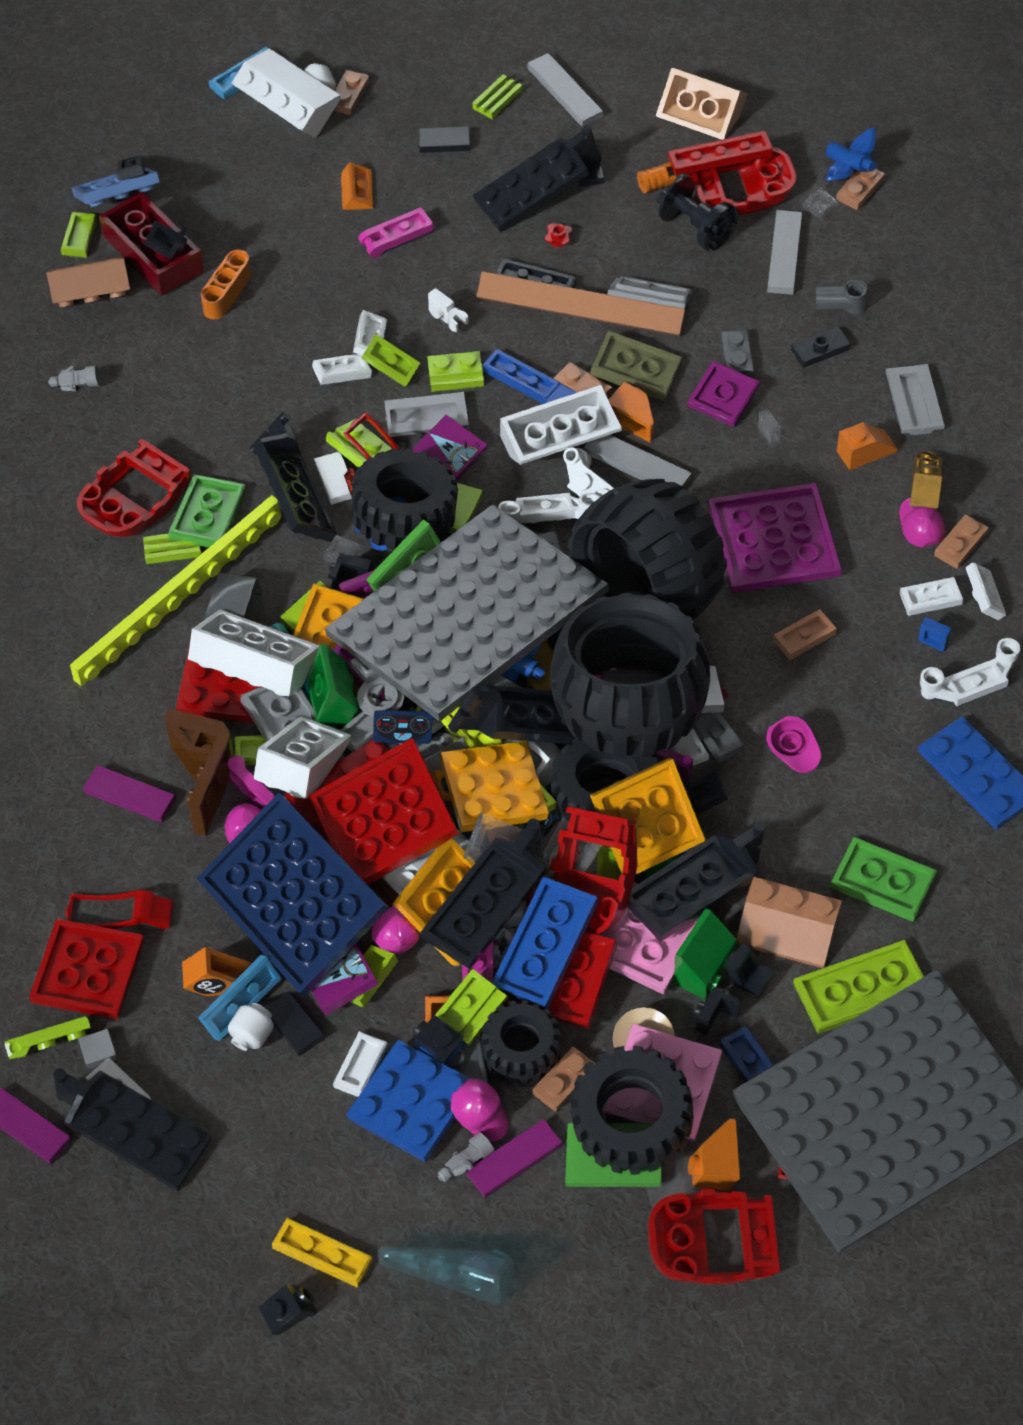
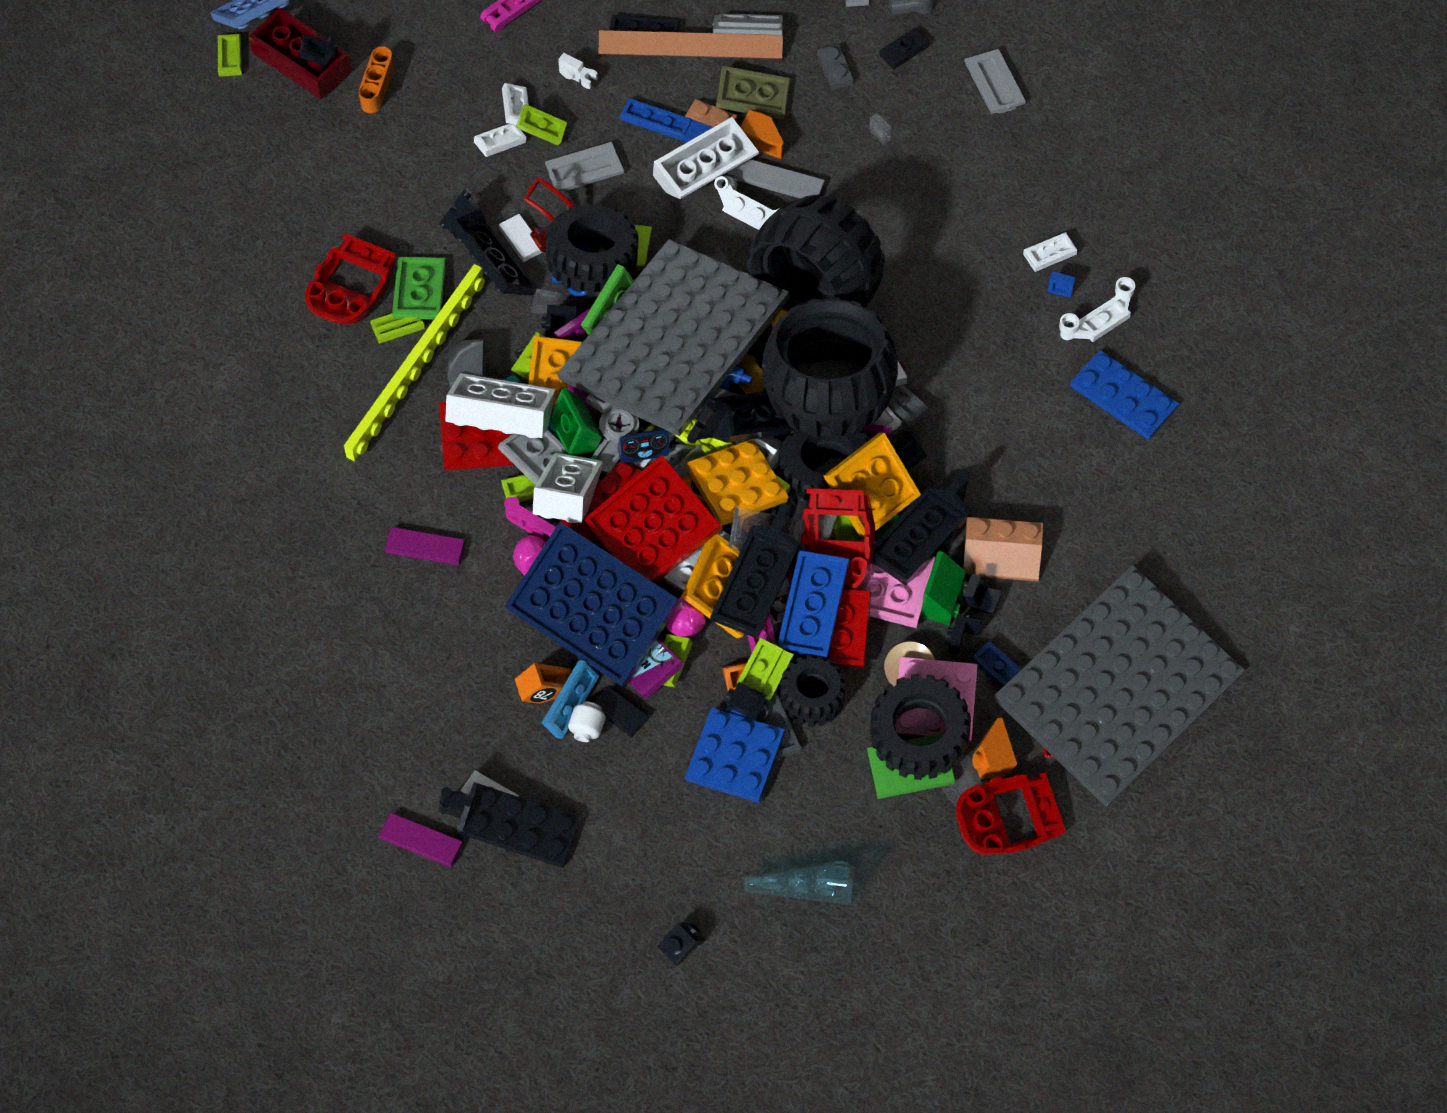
camera: 15 degrees left, 5 degrees up
(46, 1037) = (418, 764): lime hinge -> none
(69, 379) = (262, 190): light grey piece -> none
(86, 969) = (434, 700): red plate -> none
(88, 281) = (252, 97): nougat slope -> none
(97, 1048) = (462, 765): light grey tile -> none
(147, 908) = (471, 641): red piece -> none
(204, 751) = (473, 491): reddish brown bracket -> none
(322, 1252) = (696, 892): yellow tile -> none
(360, 1064) = (684, 734): white tile -> none
(363, 436) = (518, 205): lime plate -> none
(452, 445) = (615, 191): magenta tile -> none
(455, 371) = (598, 124): lime plate -> none
(460, 1162) = (799, 782): light grey piece -> none
(480, 1109) = (793, 751): dark pink piece -> none
(514, 1158) = (830, 785): magenta tile -> none
(547, 507) = (718, 231): white plate -> none
(559, 1082) = (853, 713): nougat plate -> none
(723, 393) = (833, 105): magenta tile -> none
(775, 537) = (912, 223): magenta plate -> none
(794, 744) = (971, 399): dark pink piece -> none
(804, 634) = (954, 304): nougat plate -> none
(856, 985) = (1069, 590): lime tile -> none
(863, 445) = (962, 130): orange slope -> none
(883, 879) = (1068, 498): bright green tile -> none
(921, 524) = (1026, 189): dark pink piece -> none
(926, 480) = (1023, 152): pearl gold slope -> none
(961, 541) = (1063, 200): nougat plate -> none
(985, 591) = (1094, 240): white plate -> none

